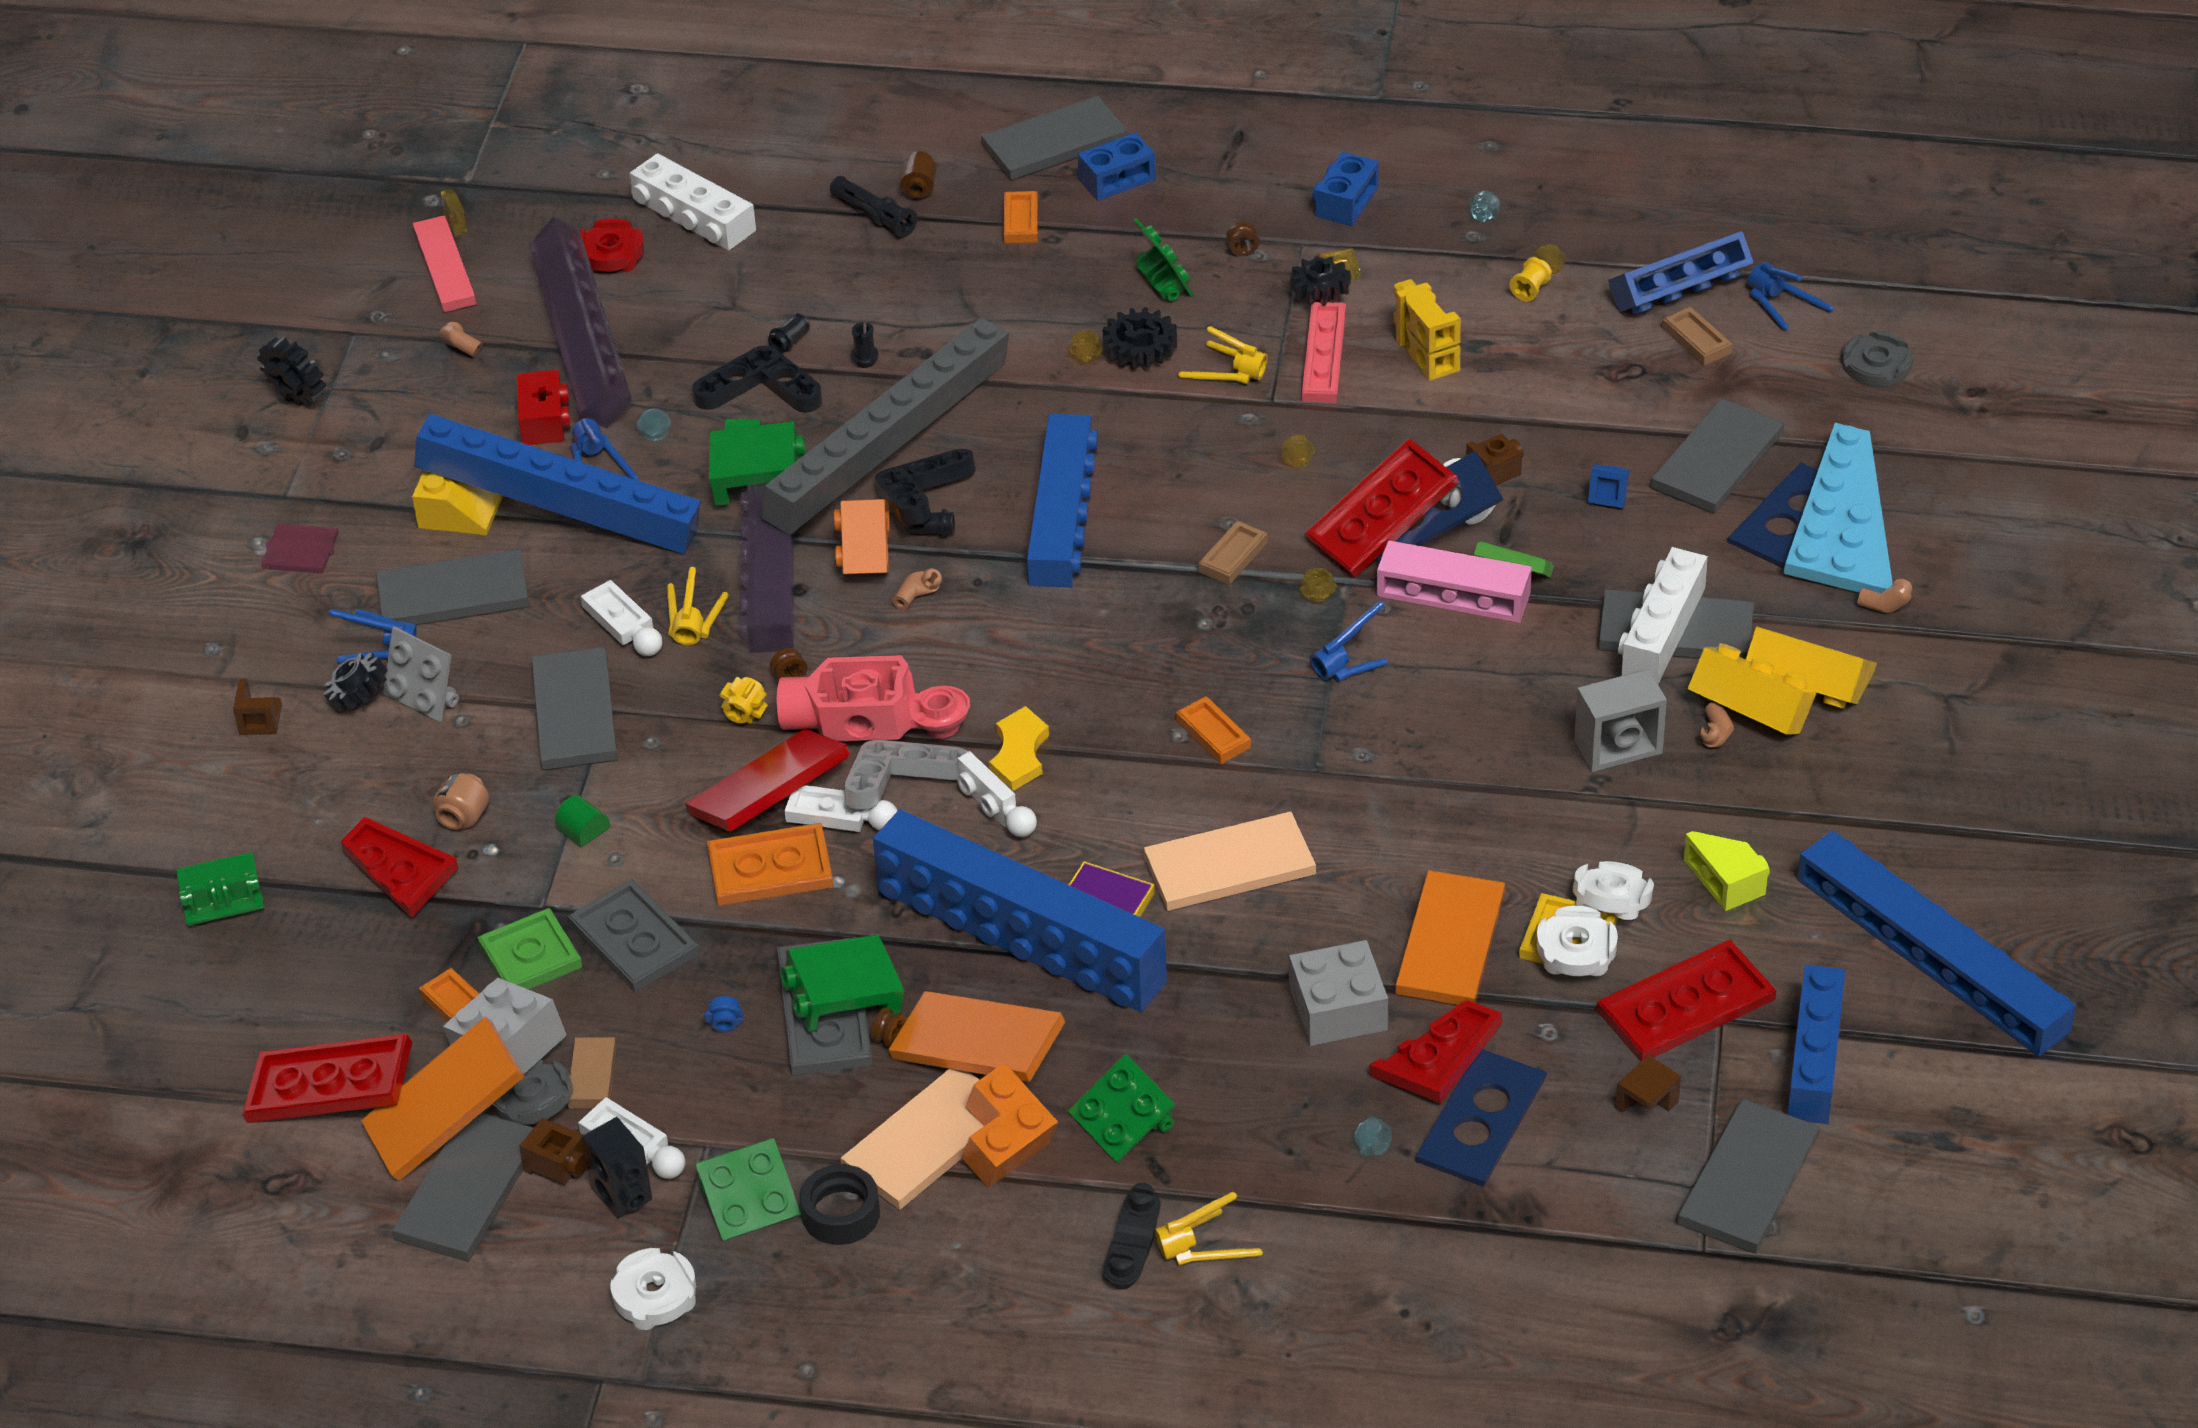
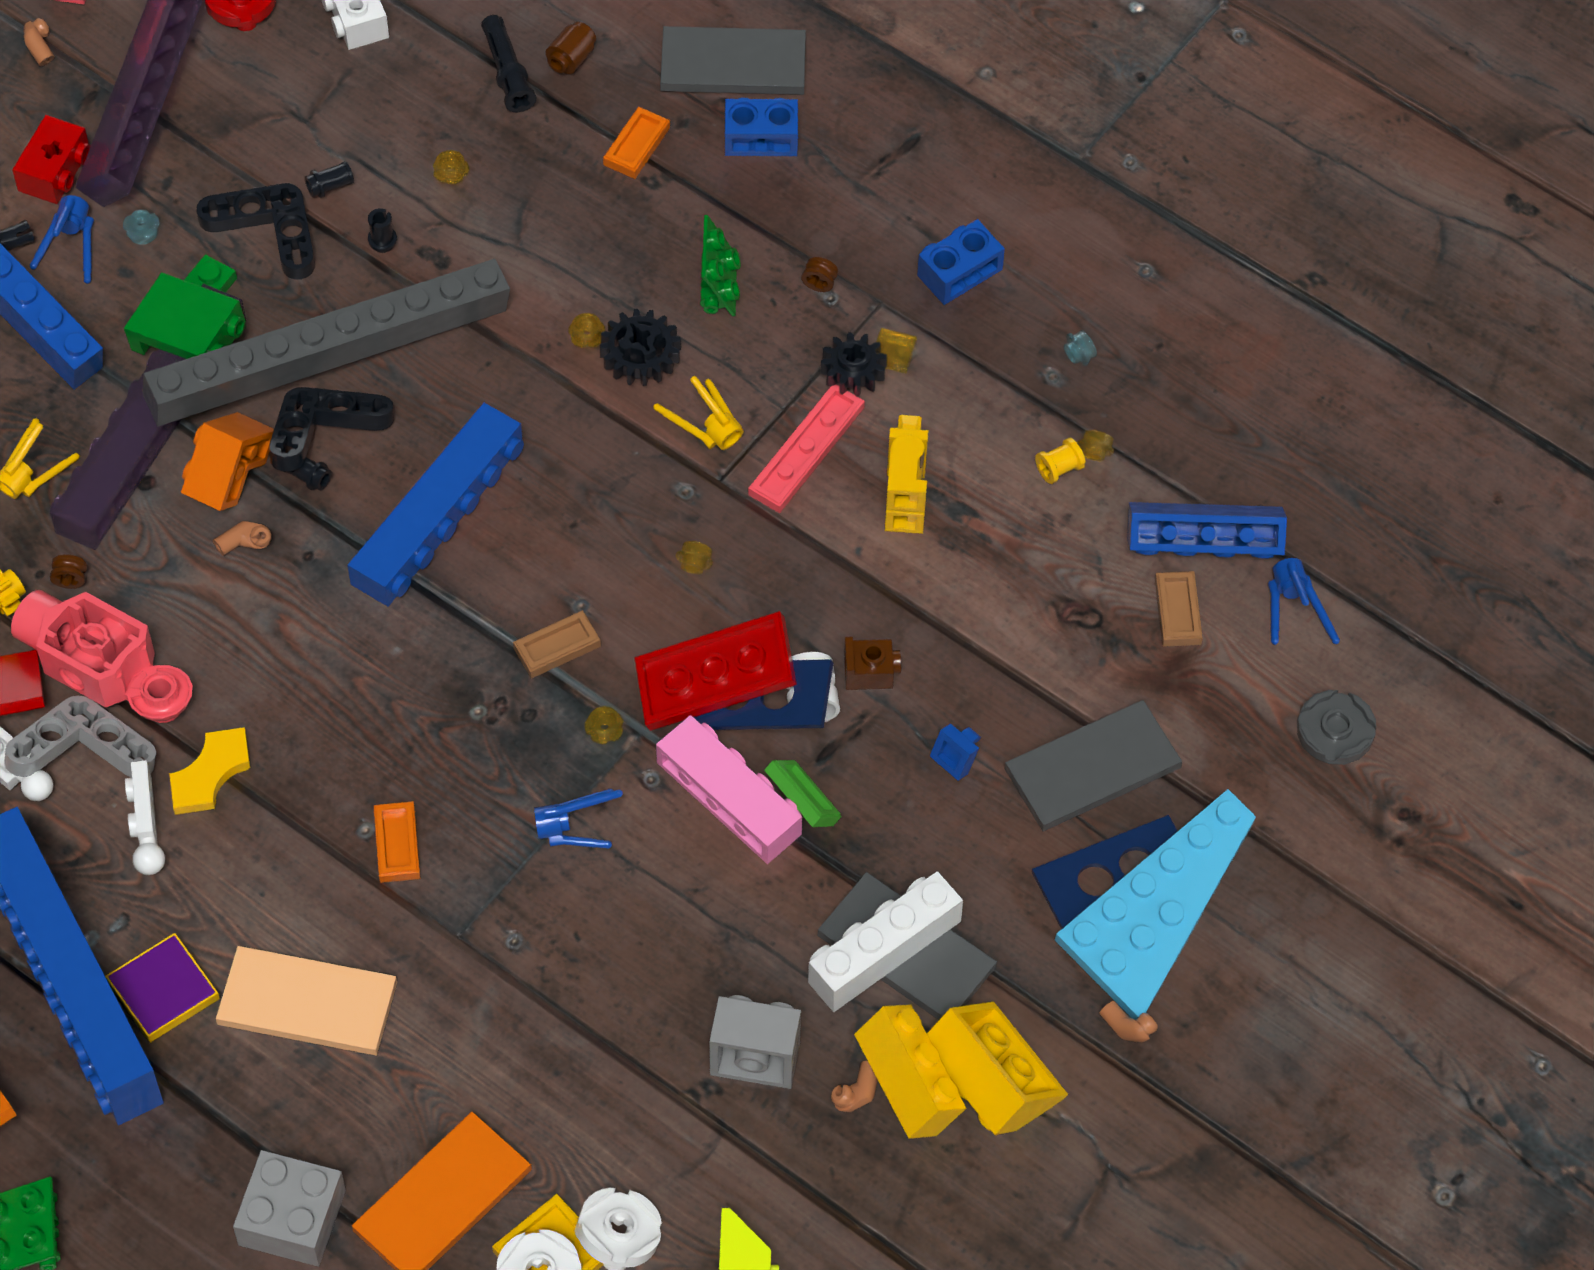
camera: 25 degrees right, 15 degrees up
(883, 287) = (450, 160): none -> clear yellow plate

